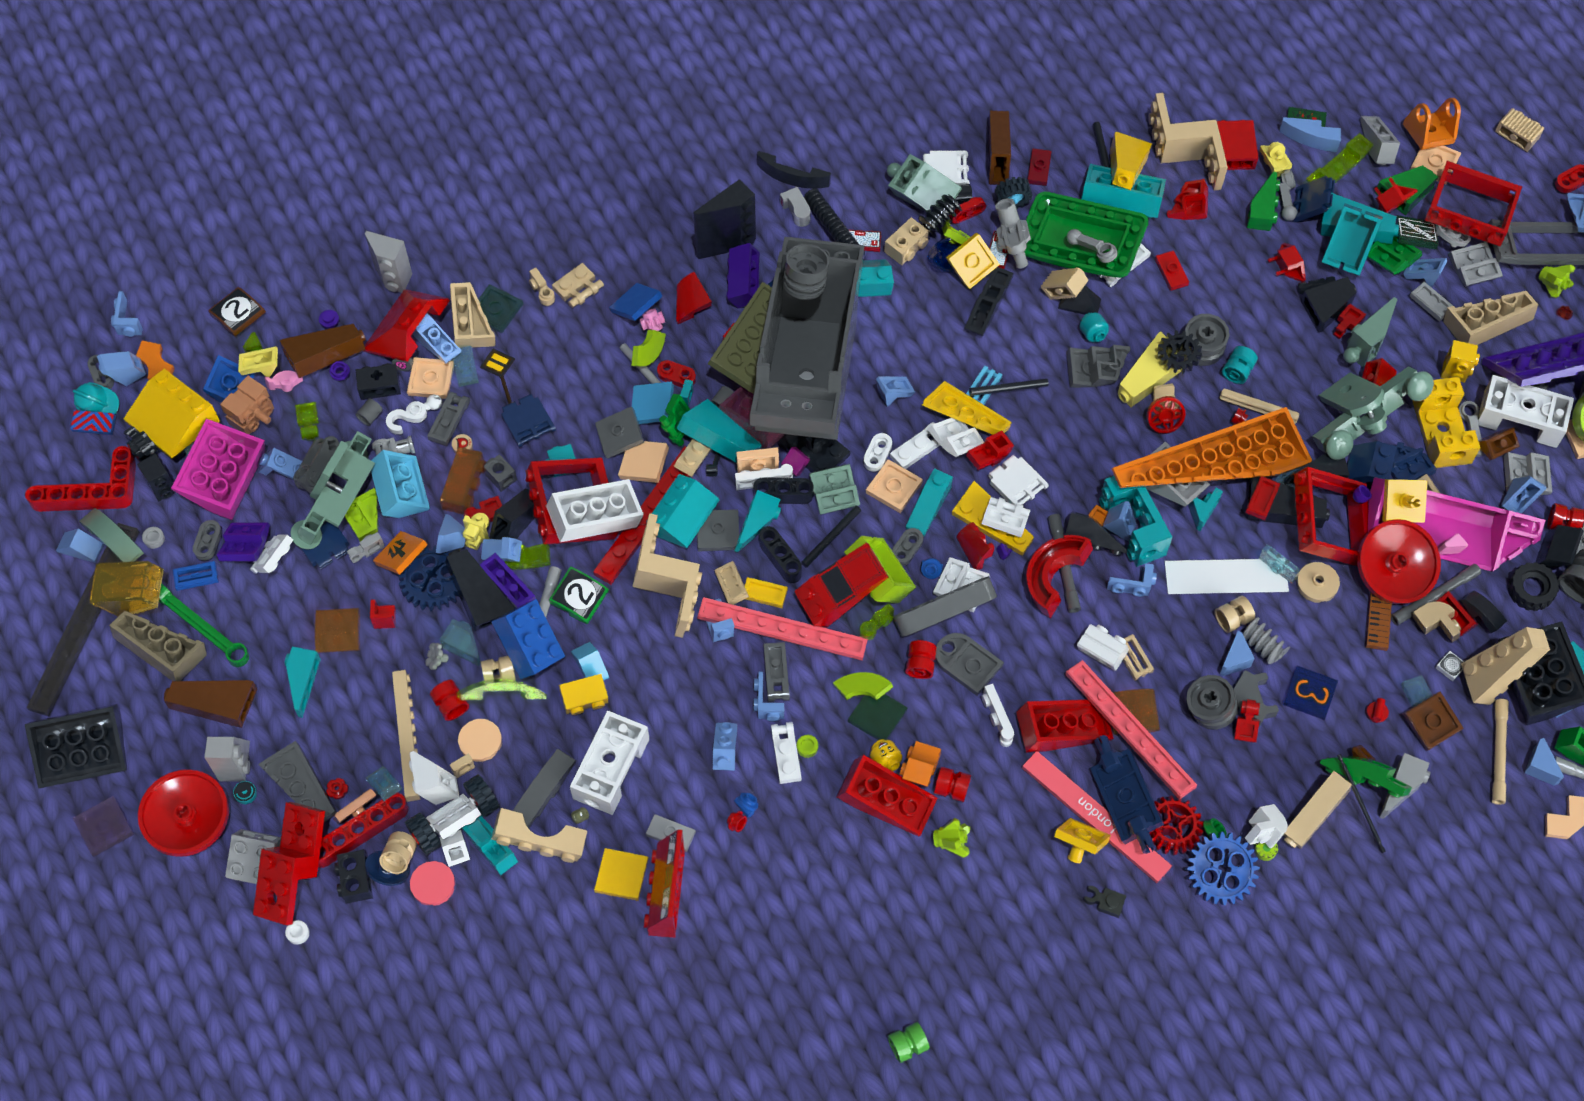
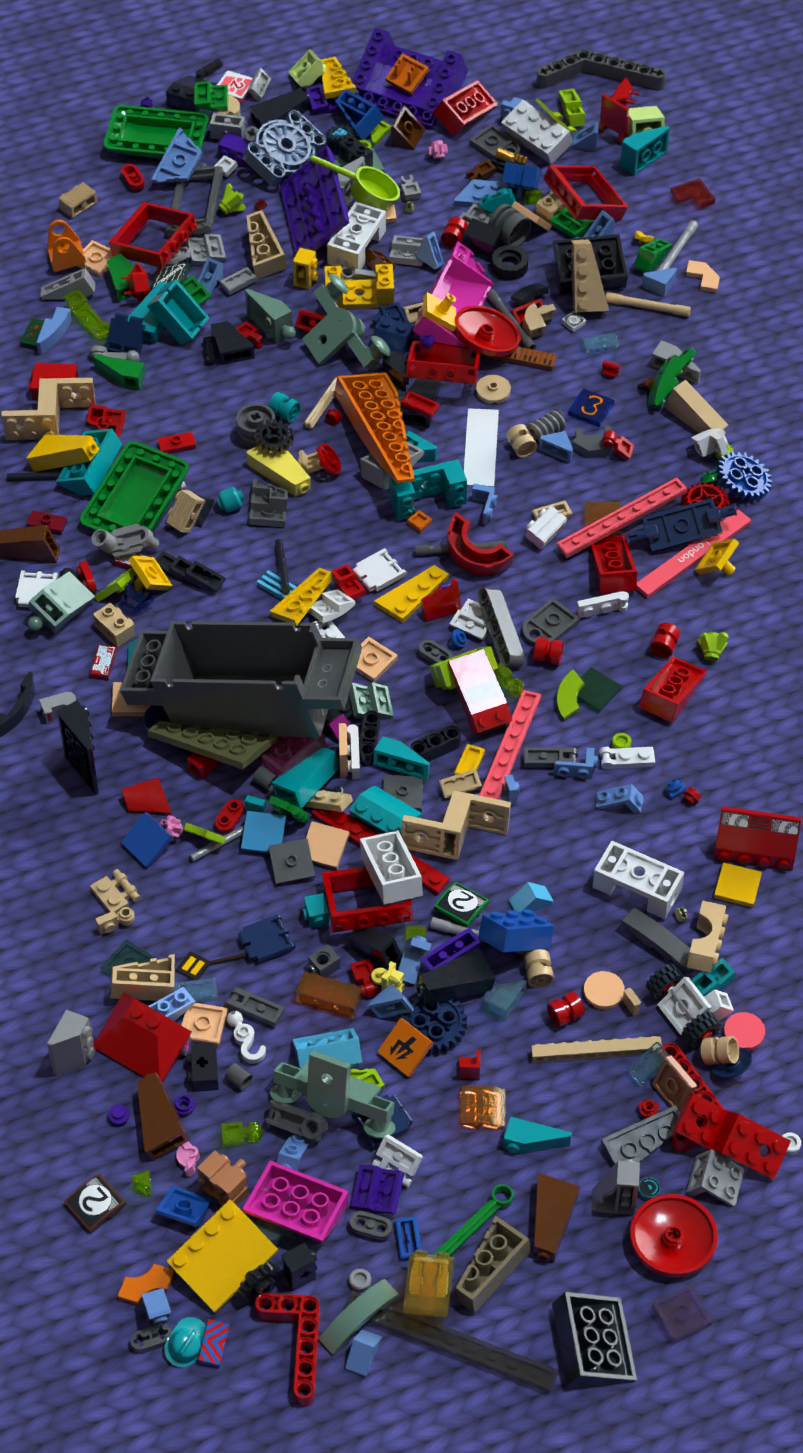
camera: 85 degrees left, 10 degrees down
(123, 325) = (87, 1319): medium blue bracket -> none
(258, 361) = (168, 1172): light yellow slope -> none
(355, 876) = (738, 1086): black brick -> none
(367, 547) = (393, 1077): light grey plate -> none
(403, 446) = (287, 1053): light grey connector -> none
(432, 780) = (651, 1017): white slope -> none
(435, 656) = (517, 1022): light grey plant -> none
(462, 441) = (285, 997): tan tile -> none
(475, 691) = (564, 974): clear neon green slope -> none
(583, 694) = (567, 900): yellow brick -> none
(663, 827) = (700, 846): light grey plate -> none
(743, 274) = (132, 751): dark purple brick -> none
(805, 271) = (185, 654): dark grey wheel -> none
(828, 217) = (88, 675): black piece -> none
(831, 536) = (416, 708): black bar -> none
(886, 754) = (635, 683): yellow head -> none
(921, 763) = (648, 658): orange brick -> none
(930, 501) = (392, 632): teal slope -> none
(939, 213) = (95, 590): black piece -> none
(1006, 516) = (421, 576): white plate -> none
(1015, 189) = (79, 538): black wheel -> none
(1076, 237) = (139, 496): light grey piece -> none
(1088, 527) = (433, 527): black slope -> none
(1109, 901) = (766, 554): pearl dark grey plate -> none
(1121, 520) = (428, 500): medium blue slope -> none
(1212, 702) = (602, 461): dark grey wheel -> none
(1275, 157) = (77, 354): light yellow hips -> none
(1279, 564) = (477, 407): clear light blue plate -> none
(1290, 262) = (181, 363): red piece -> none
(1358, 797) = (694, 385): black piece -> none
(1433, 721) = (622, 337): reddish brown tile -> none
(1453, 545) = (471, 297): bright pink slope -> none

